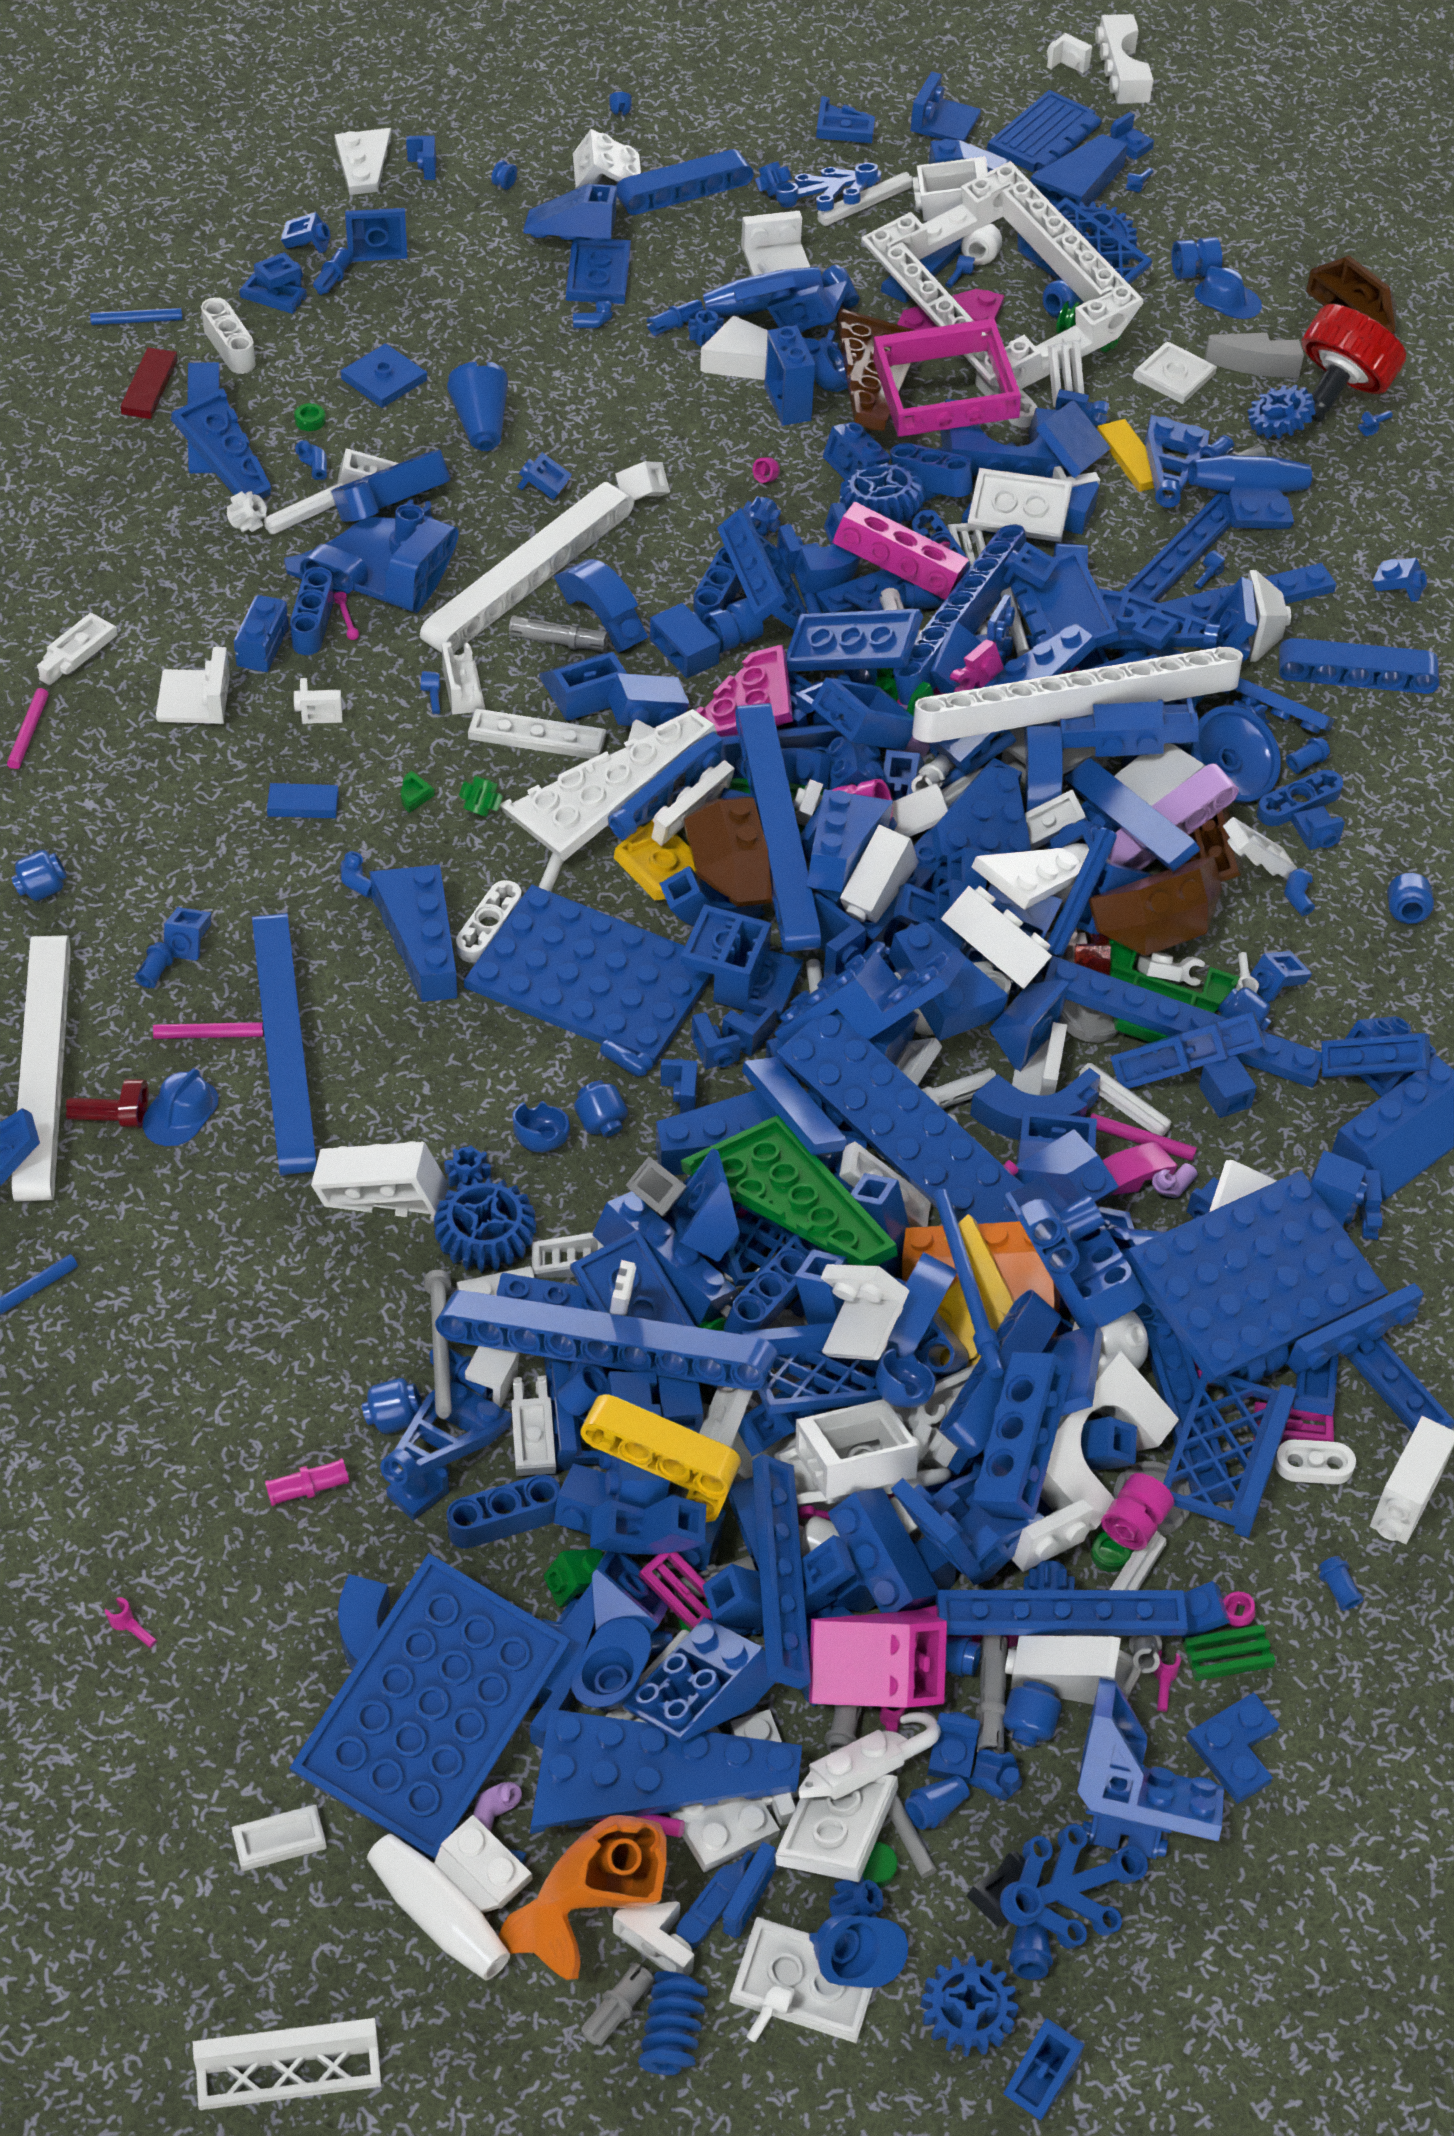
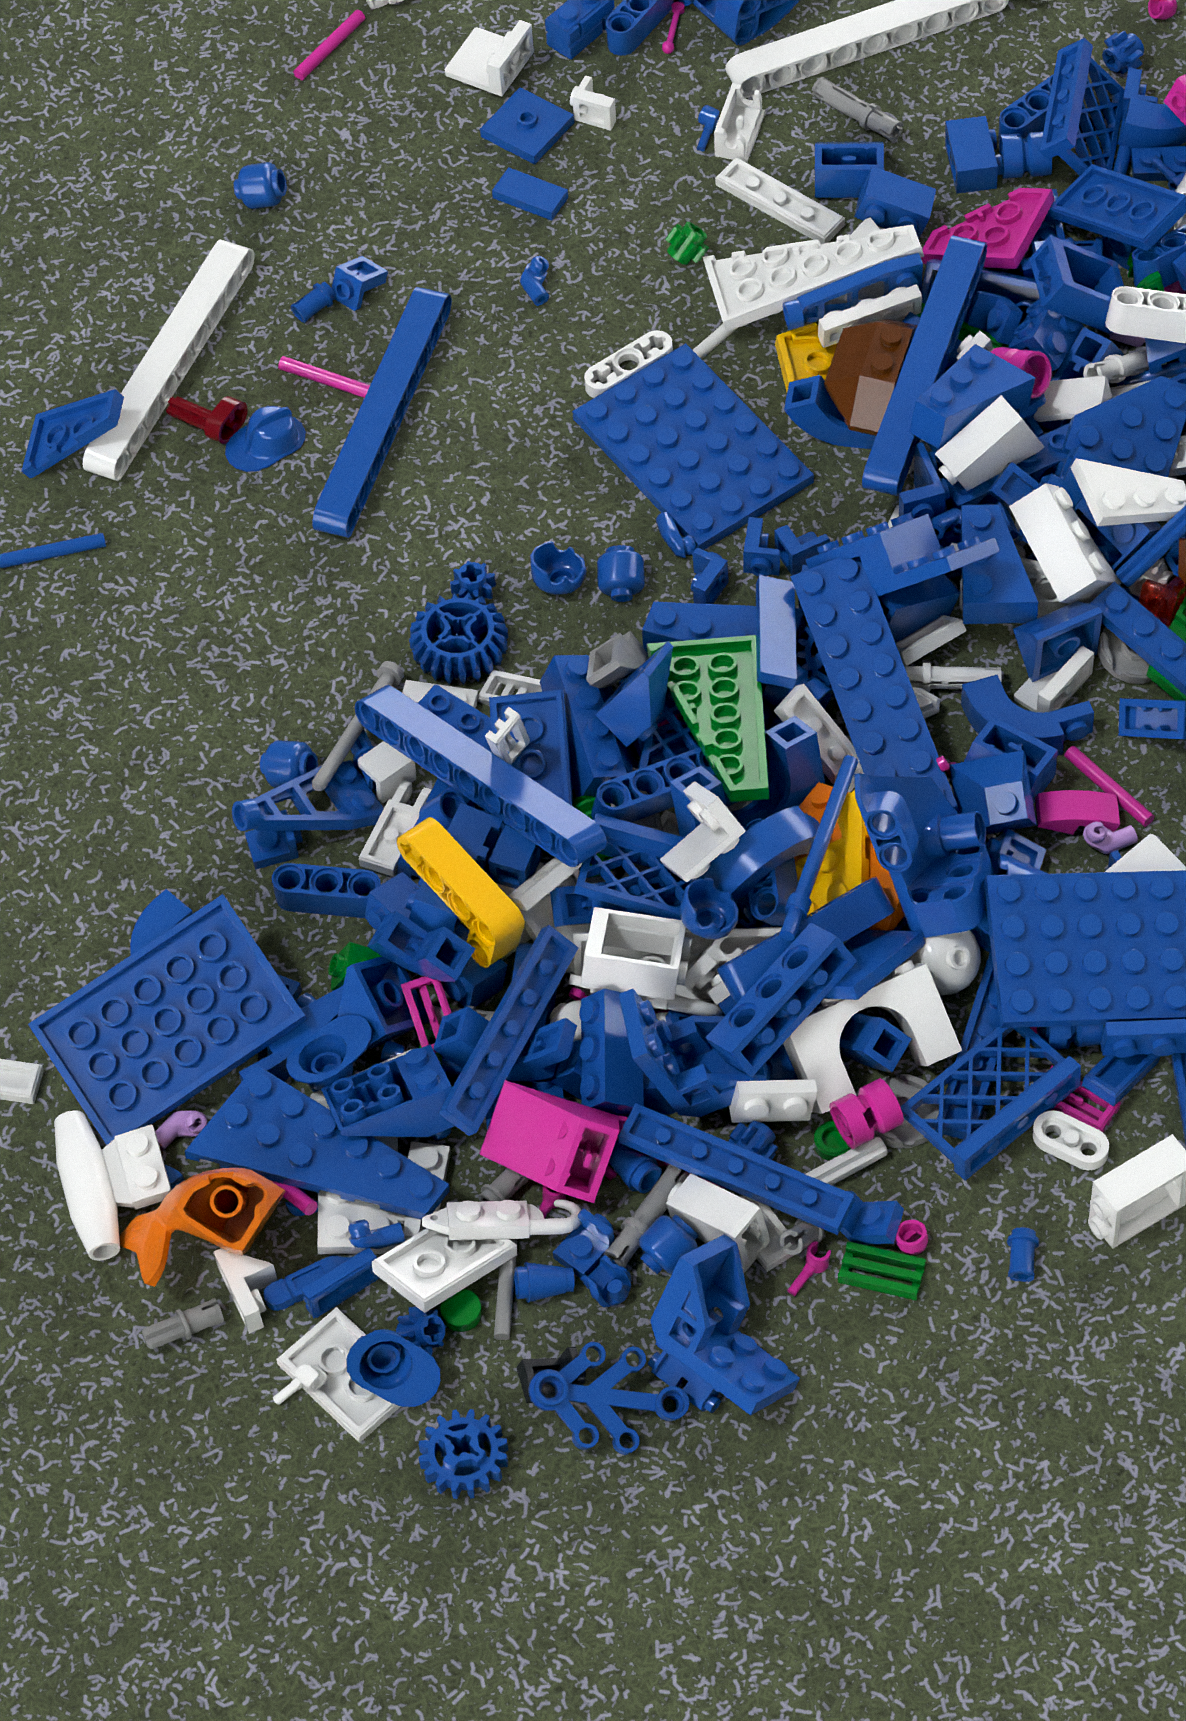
camera: 35 degrees right, 5 degrees up
(263, 741) = (527, 125): none -> blue plate
(307, 1482) = (184, 801): dark pink pin -> none
(380, 1176) = (390, 562): white wedge -> none
(415, 791) = (635, 219): green tile -> none
(418, 921) = (562, 343): blue wedge -> none
(608, 597) = (916, 90): blue arch -> none
(671, 2023) = (213, 1357): blue piece -> none
(740, 957) = (824, 482): blue bracket -> none
(754, 1832) = (375, 1239): none -> blue arm
(1030, 1949) = (542, 1436): blue cone -> none
(1045, 2069) = (492, 1532): blue slope -> none
(1130, 1103) = (1115, 747): white axle -> none
(1226, 1744) = (831, 1340): blue plate -> none

